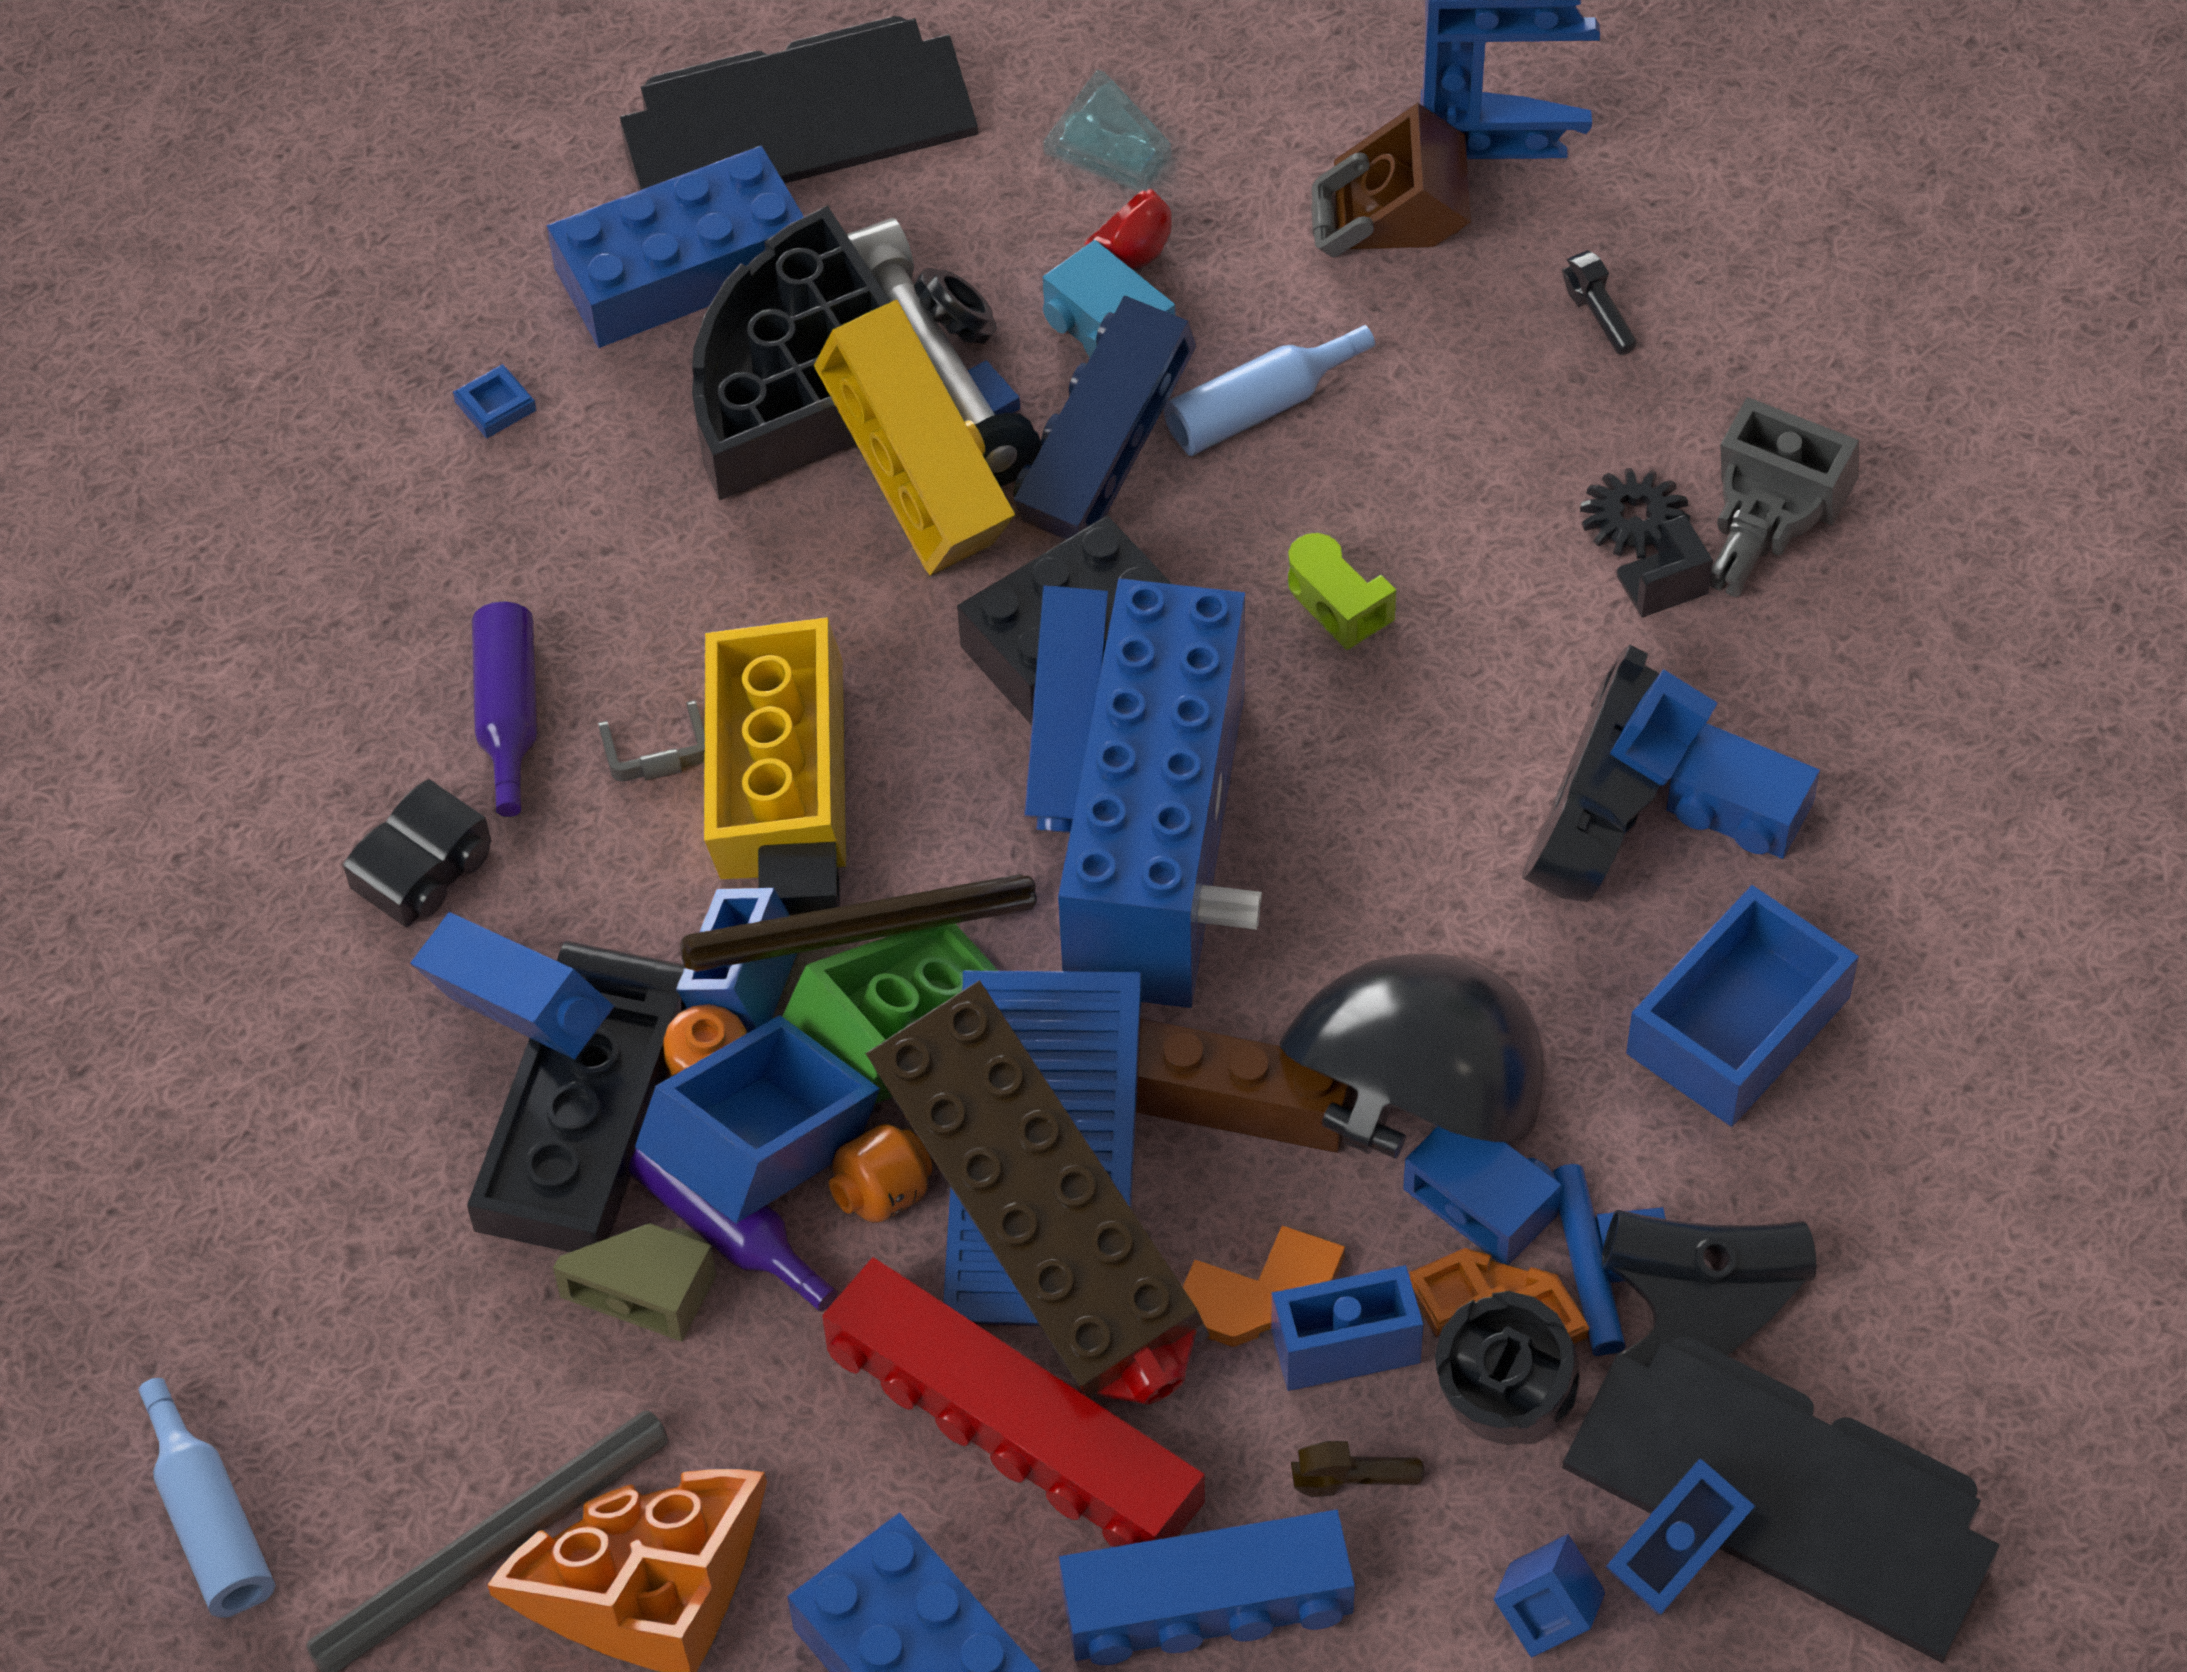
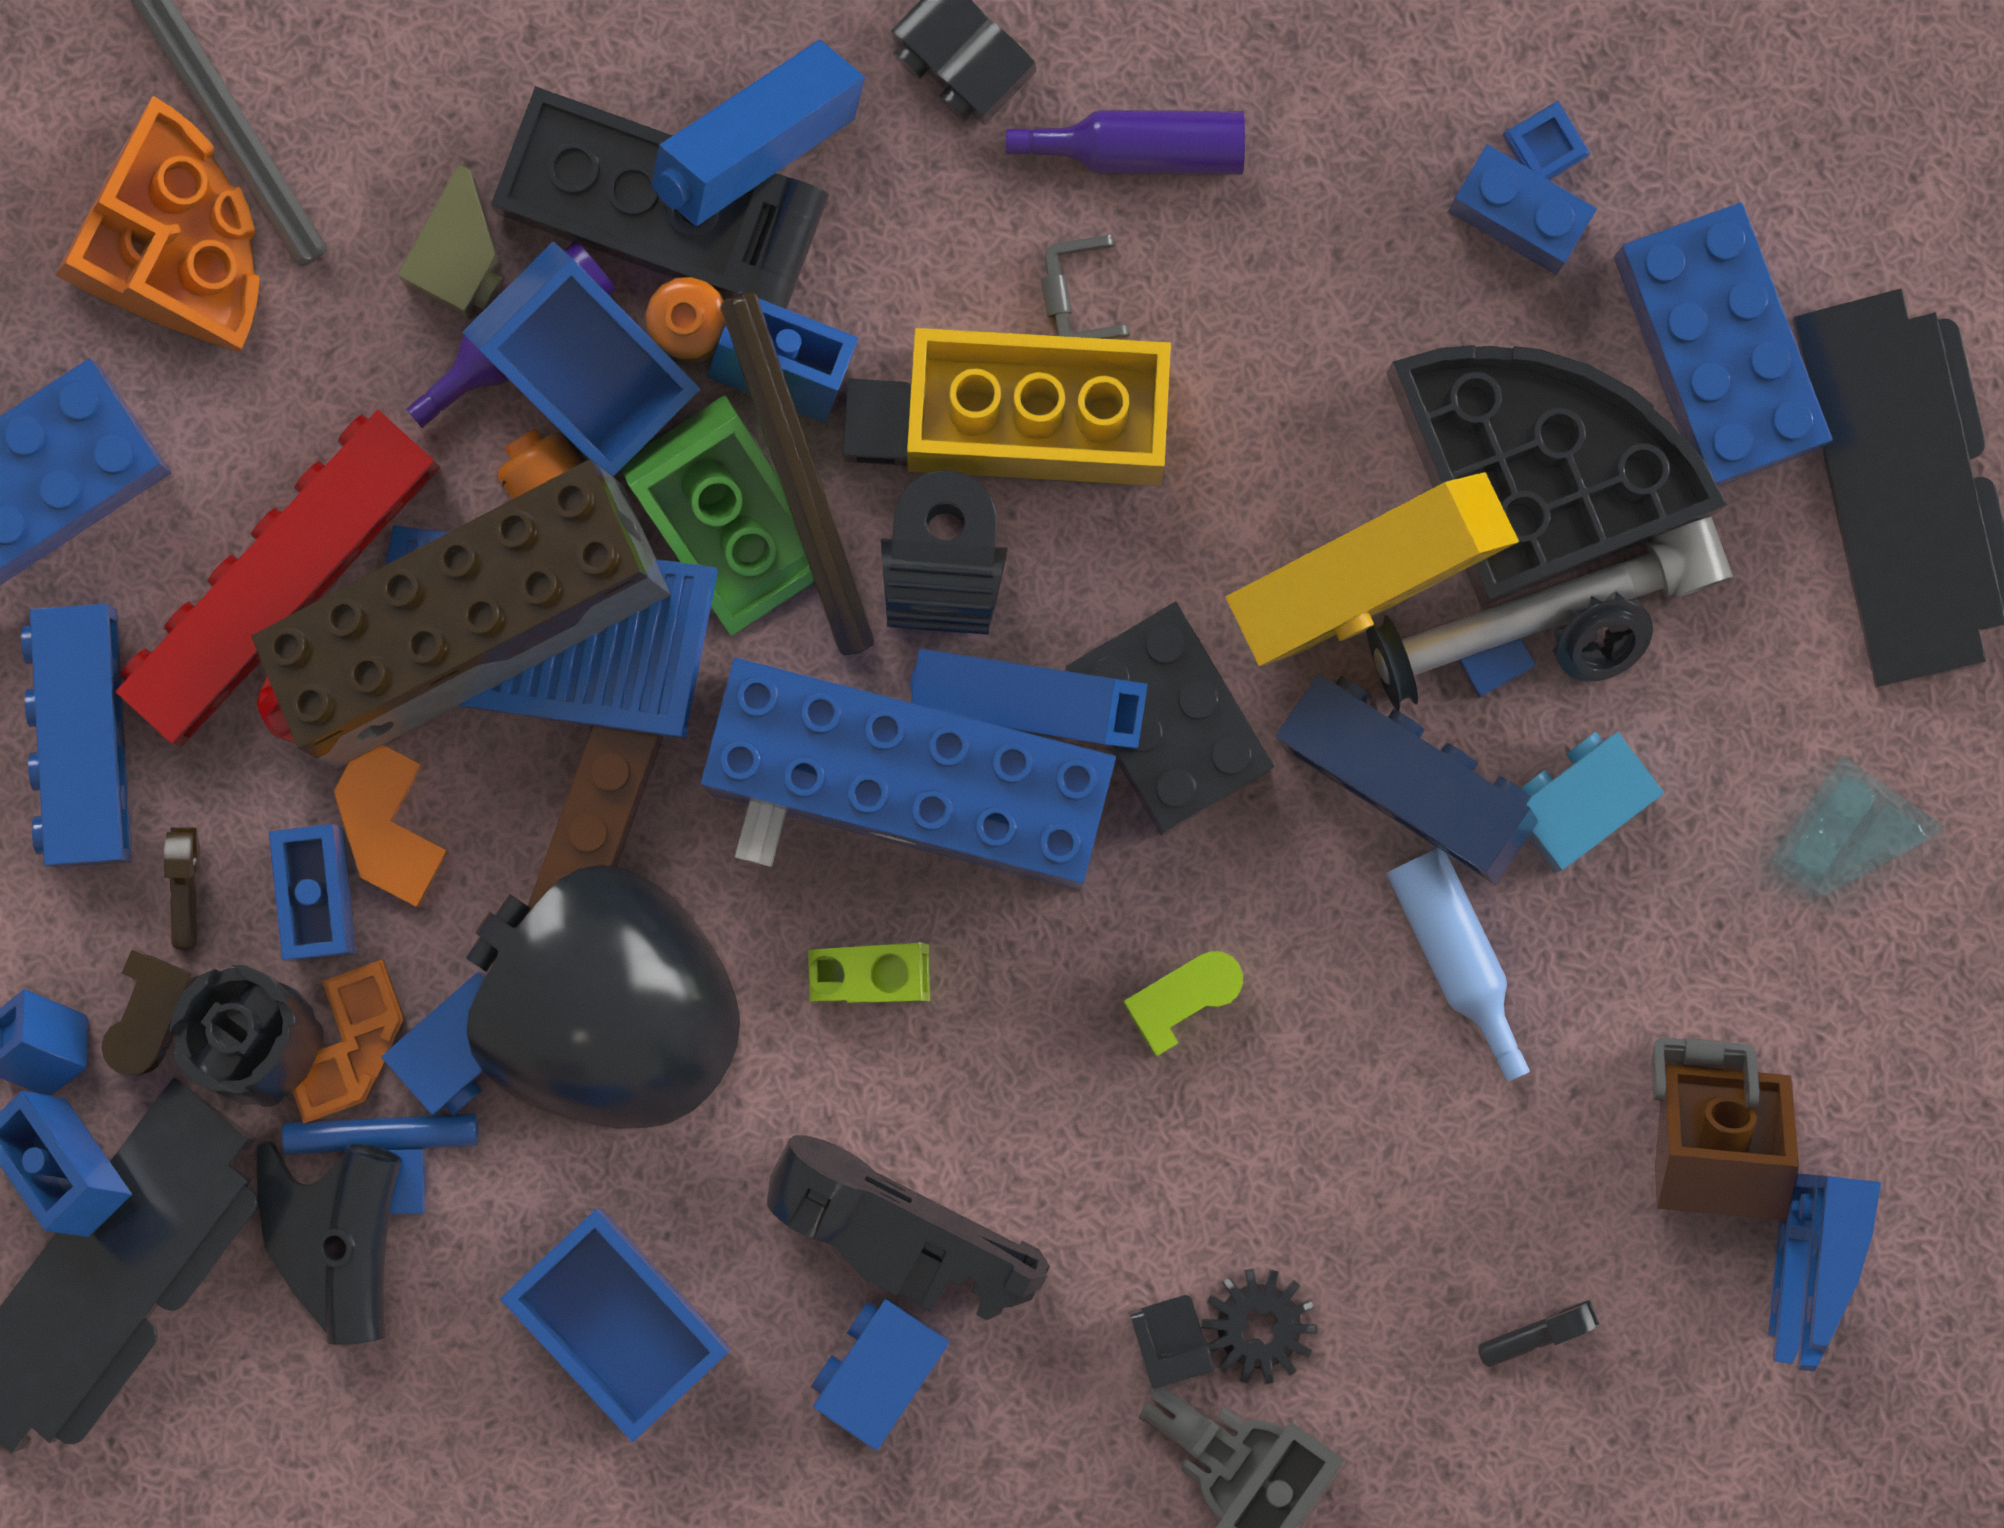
camera: 90 degrees right, 30 degrees up
(559, 399) = (1522, 209): none -> blue brick
(944, 815) = (943, 581): none -> black piece
(1137, 230) = (1689, 835): red hair -> none
(1353, 837) = (870, 974): none -> lime leg
(1500, 1484) = (143, 1034): none -> dark brown leg
(1663, 727) = (926, 1293): blue panel -> none

